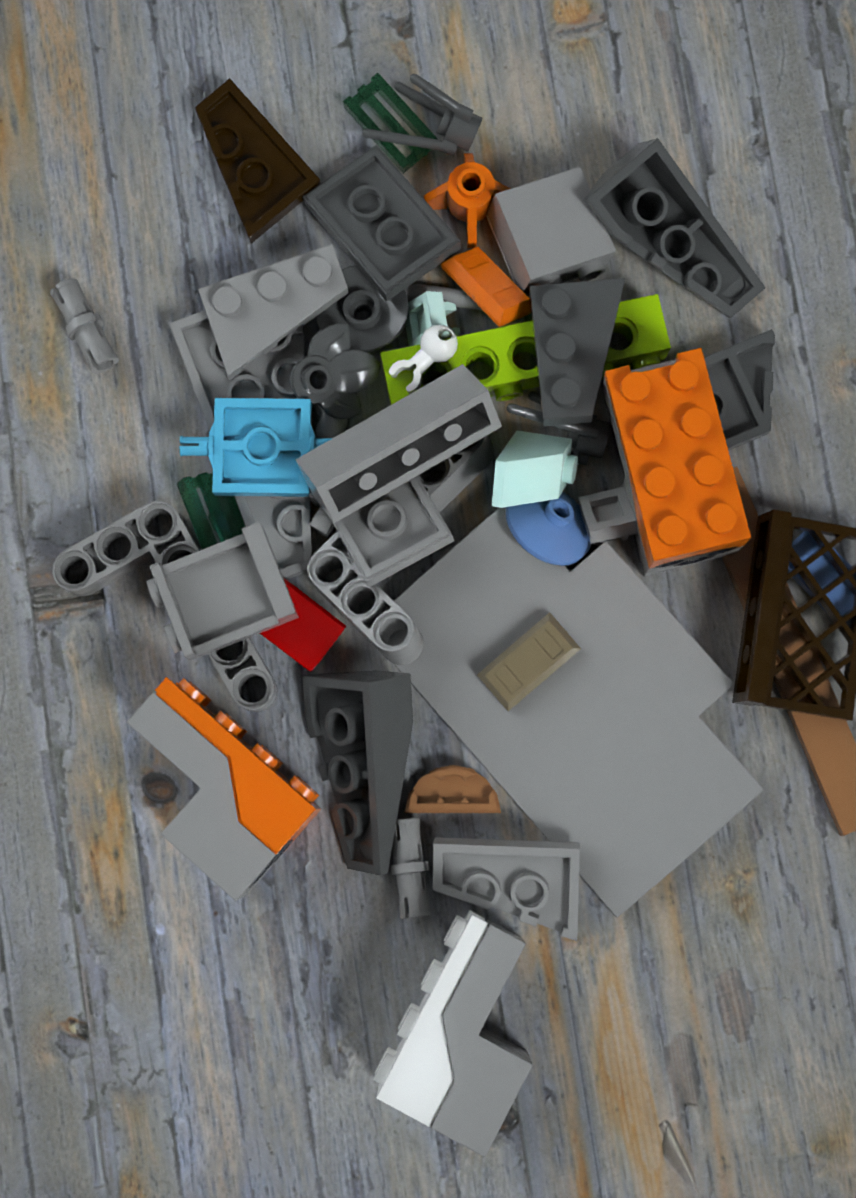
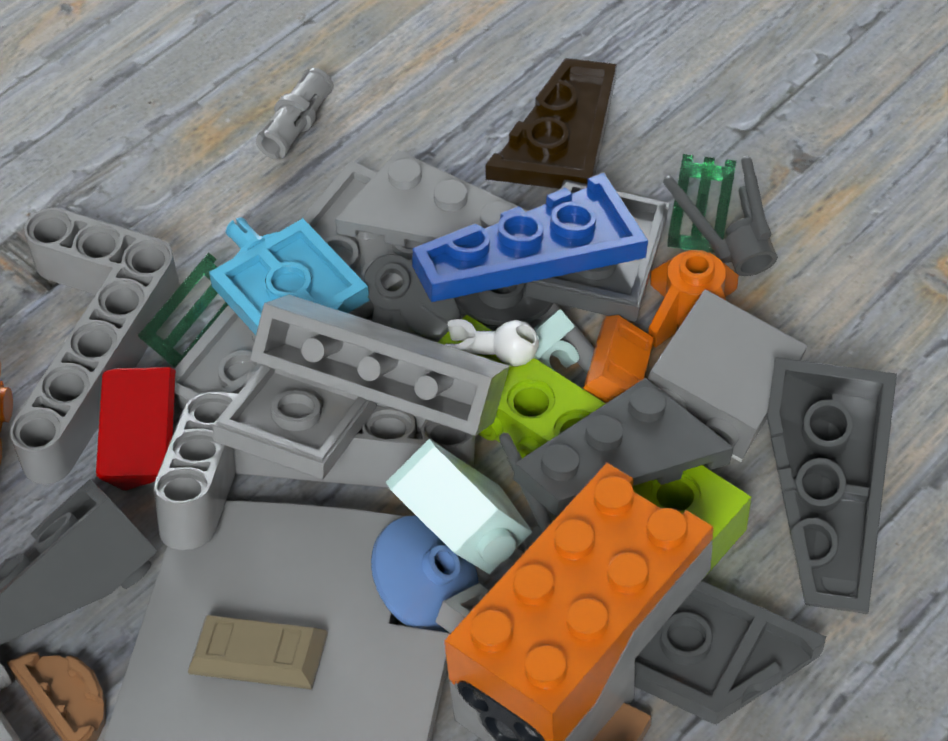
camera: 55 degrees right, 30 degrees down
(222, 594) = (110, 337): light grey panel -> none
(370, 252) = (549, 241): none -> blue wing

